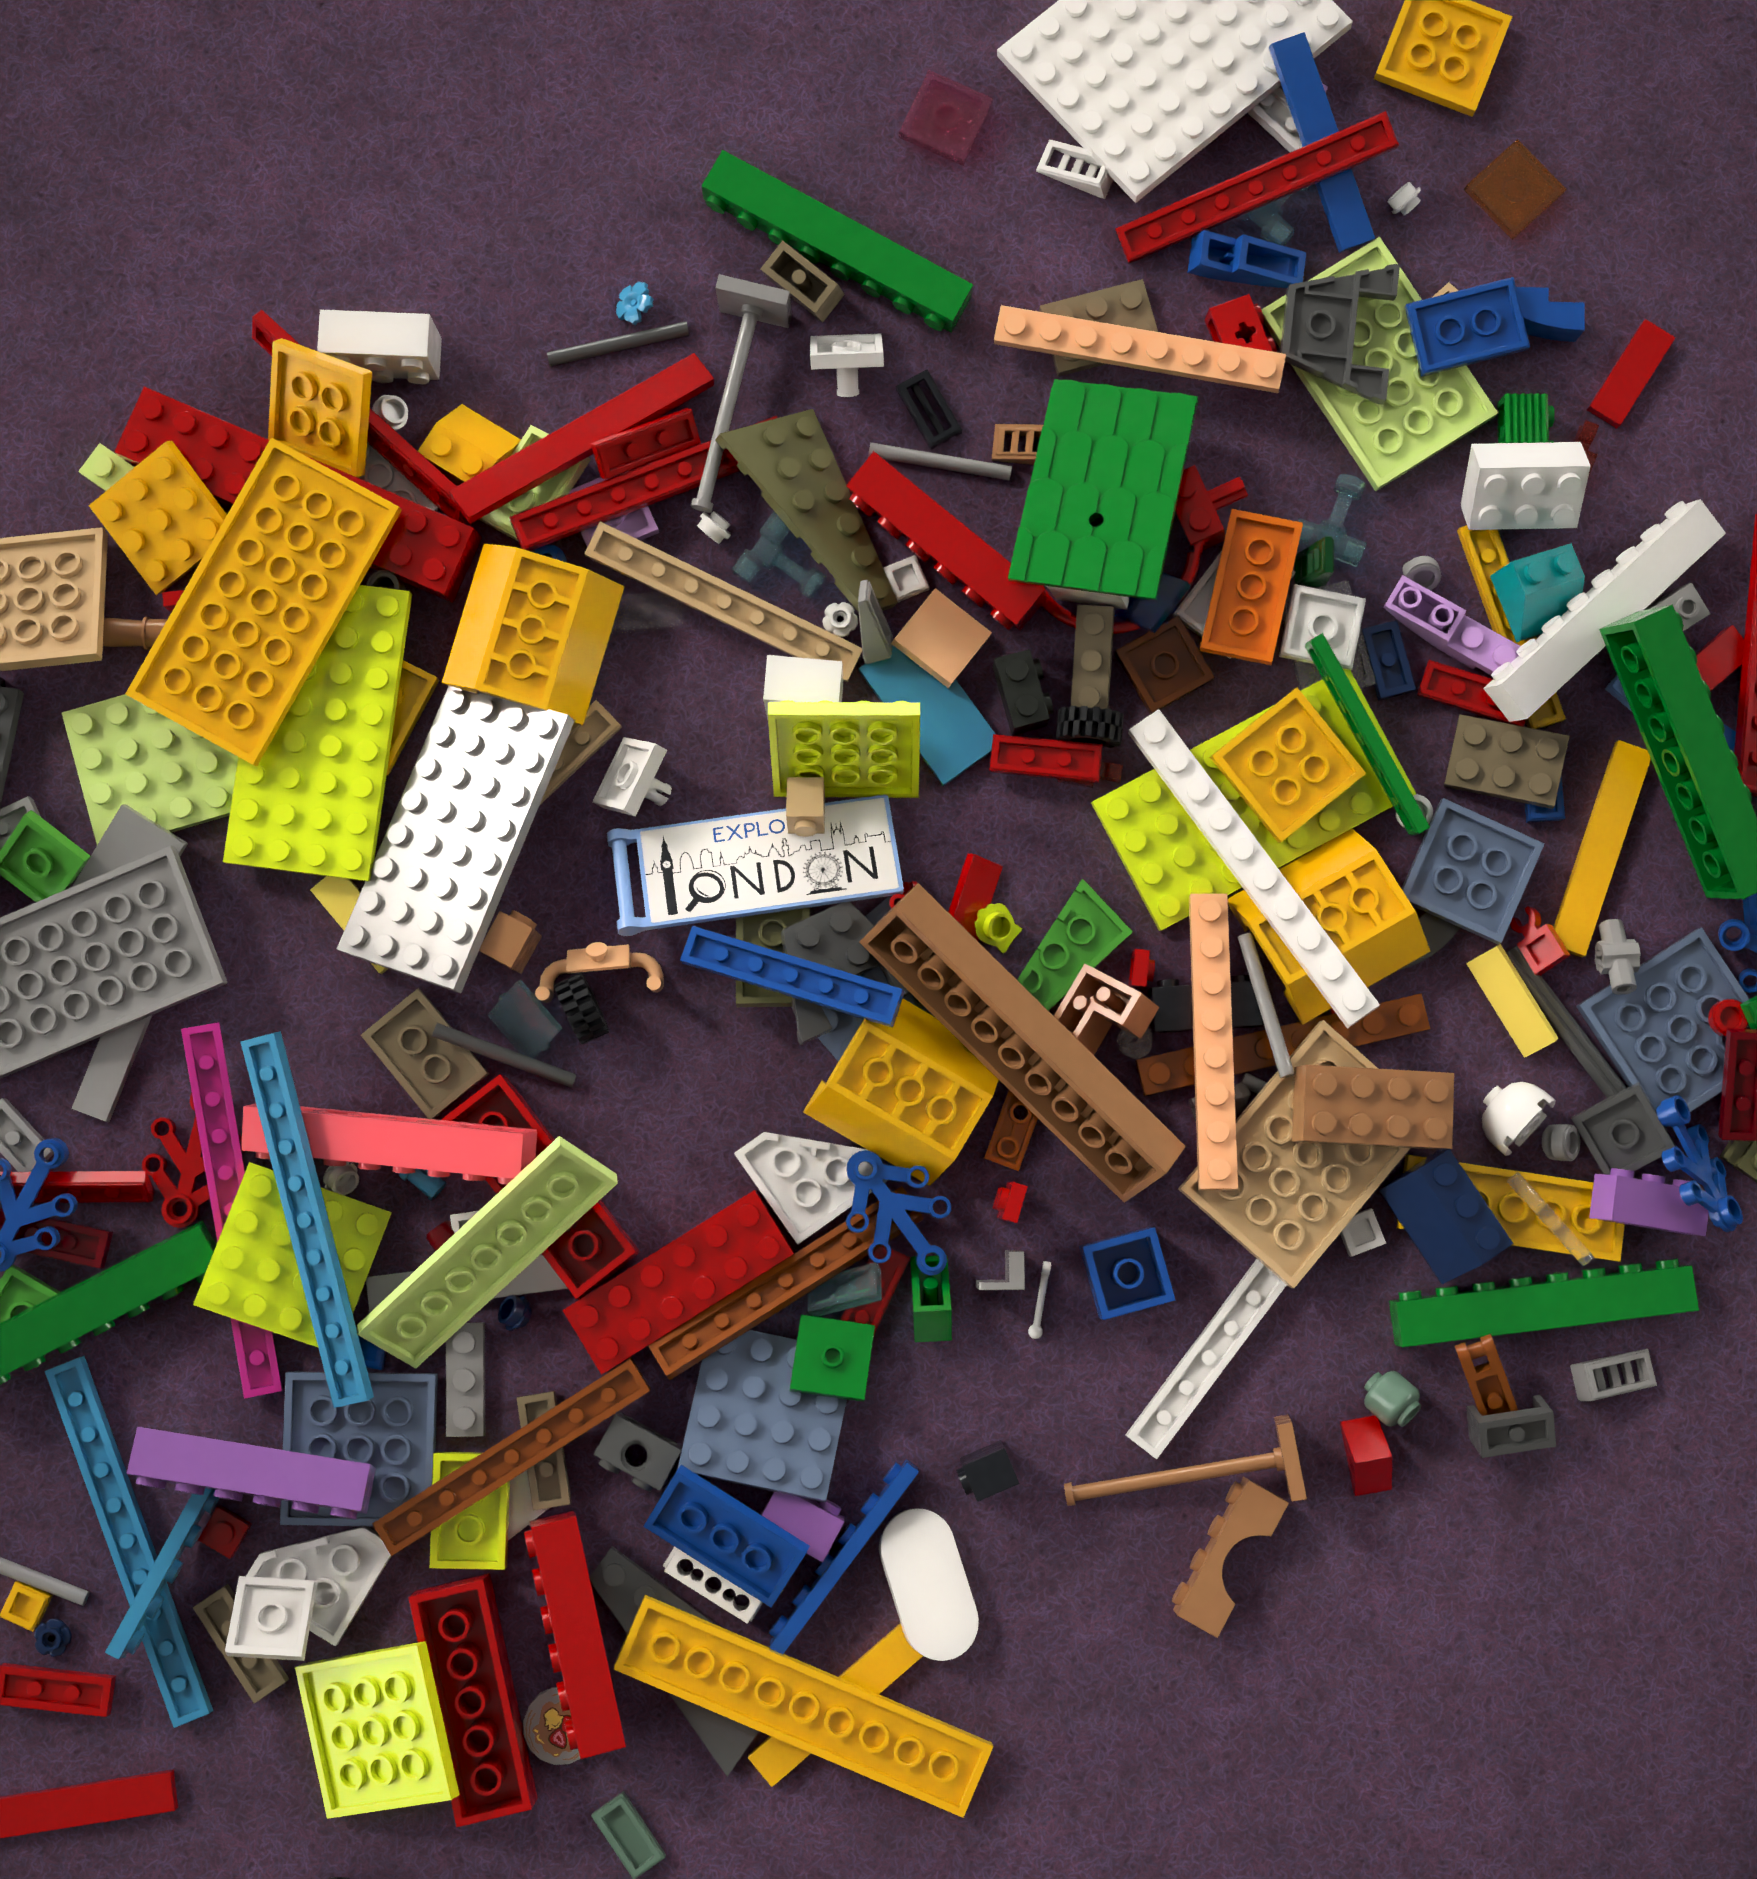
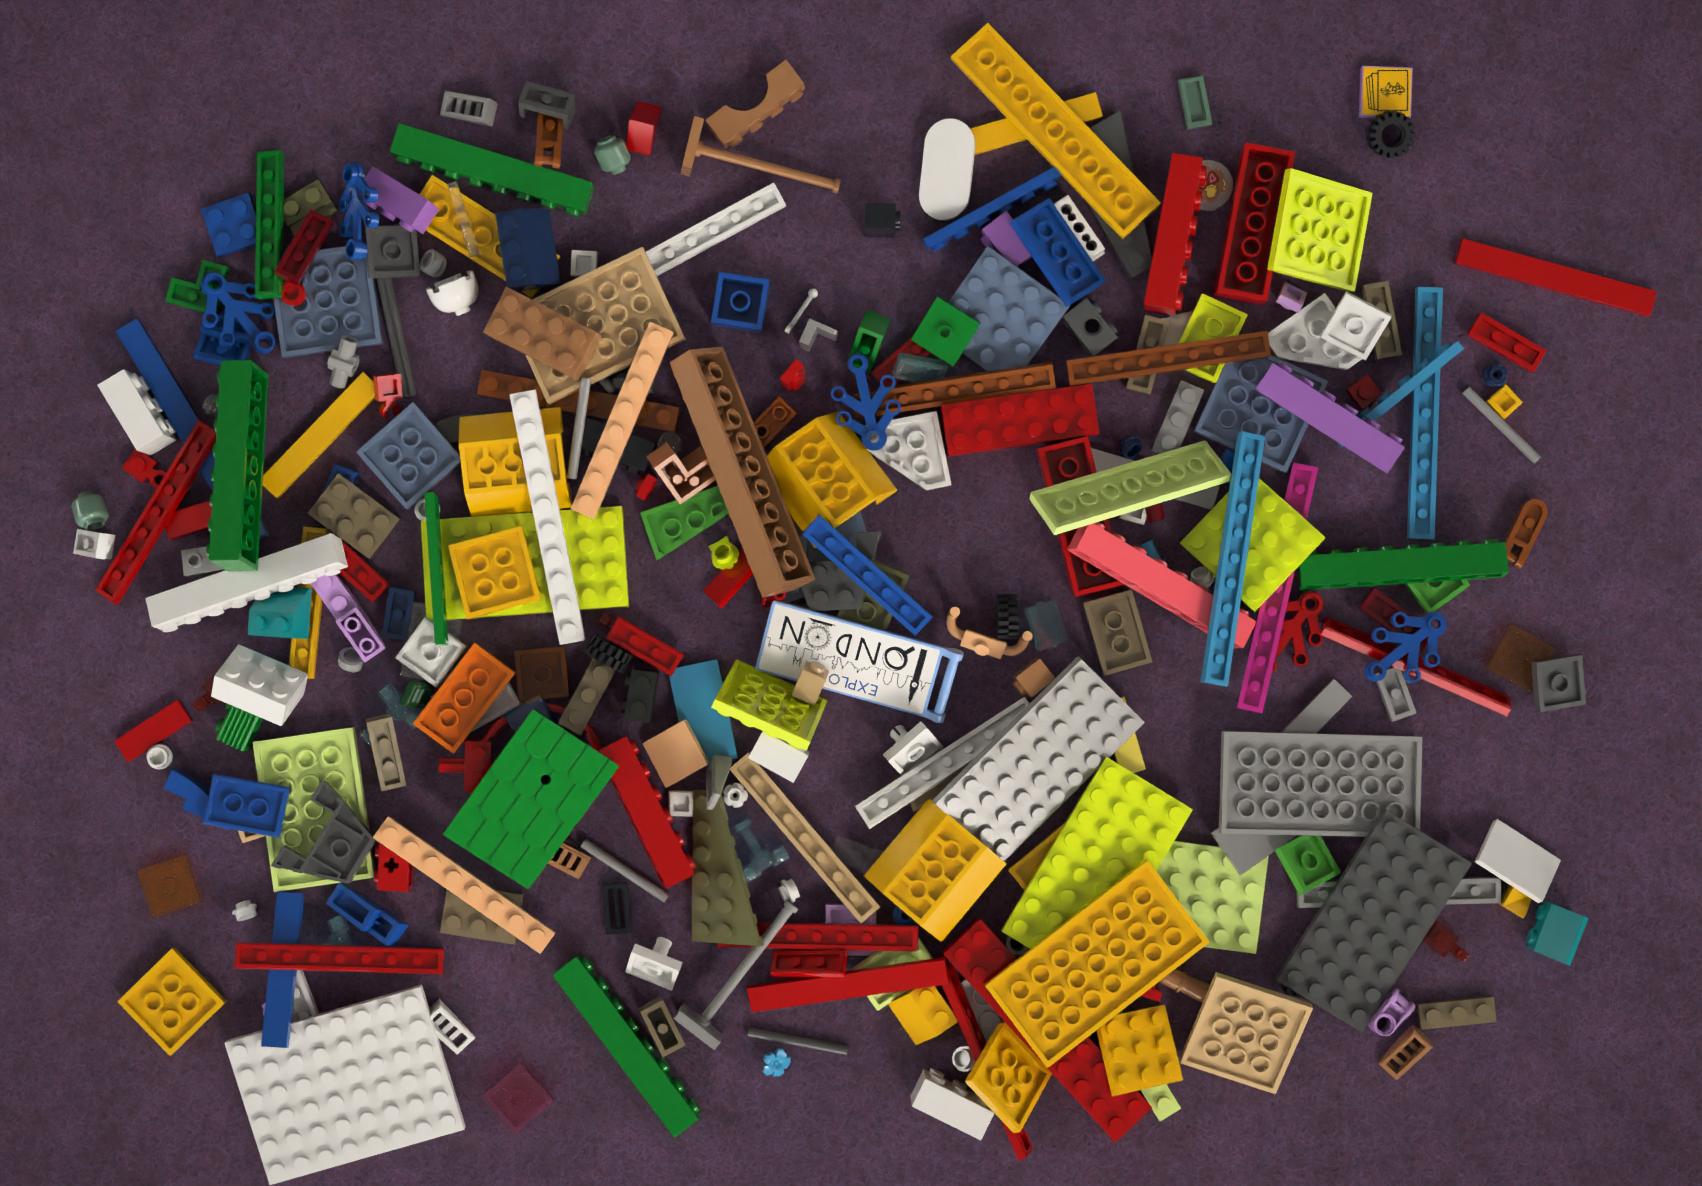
camera: 150 degrees left, 5 degrees up
(379, 1619) = (1291, 297): none -> lavender plate
(504, 1055) = (1074, 615): dark grey bar -> none
(585, 772) = (936, 768): none -> white plate
(1320, 473) = (385, 752): none -> dark tan plate
(1512, 1001) = (422, 364): light yellow tile -> none
(1607, 344) = (159, 756): none -> white plate

